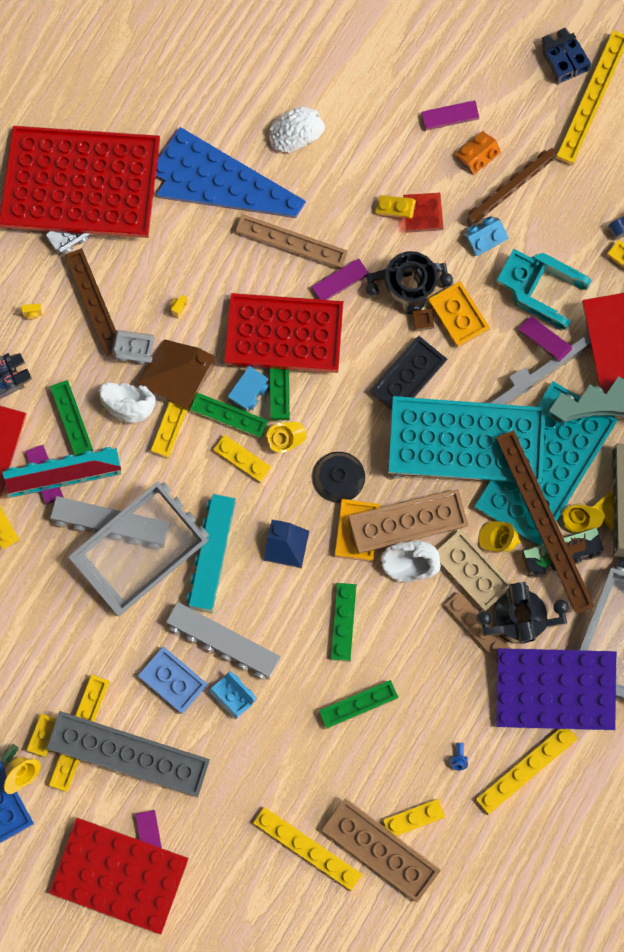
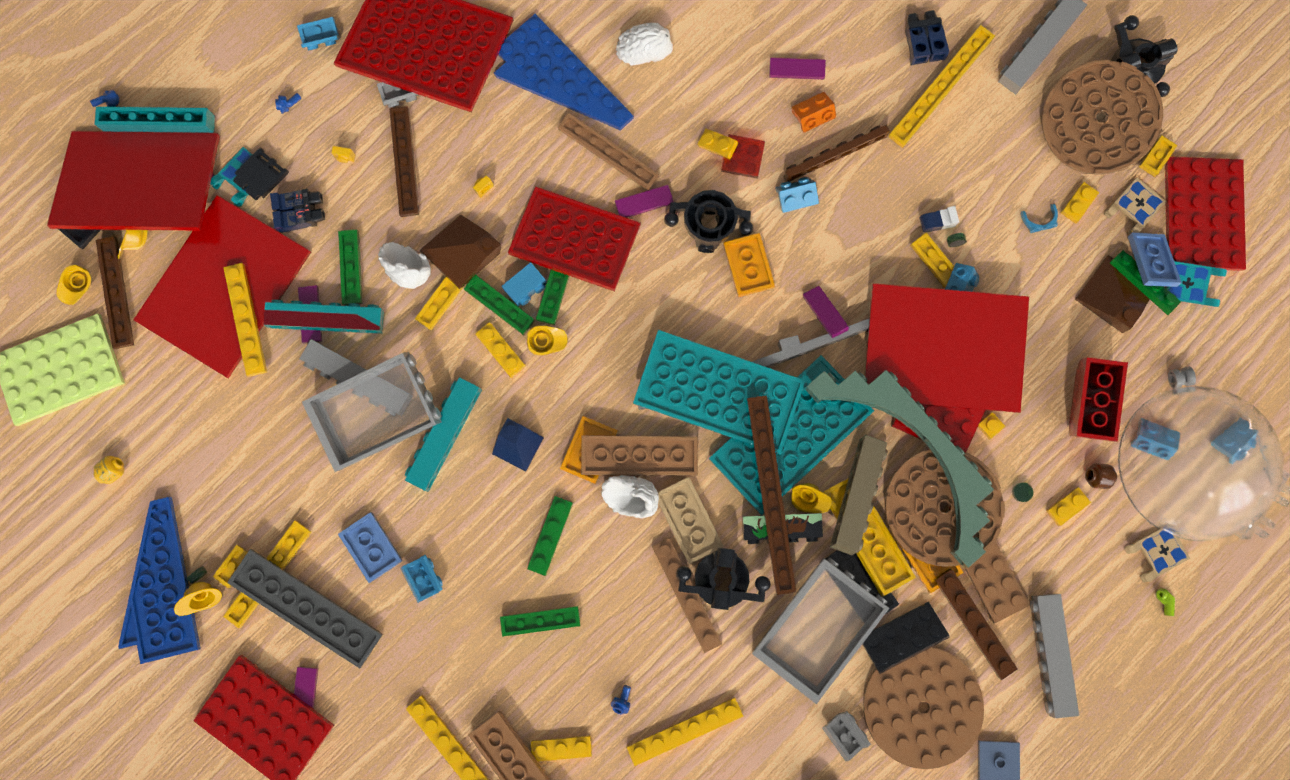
camera: 25 degrees right, 5 degrees up
(133, 346) = (426, 213): light grey bracket -> none
(223, 640) = (429, 523): light grey brick -> none
(339, 477) = (587, 392): black piece -> none
(409, 372) = (684, 309): black plate -> none
(423, 319) = (712, 261): reddish brown plate -> none
(498, 537) = (723, 495): yellow piece -> none
(522, 276) = (822, 242): teal plate -> none
(556, 689) = (736, 663): dark purple plate -> none

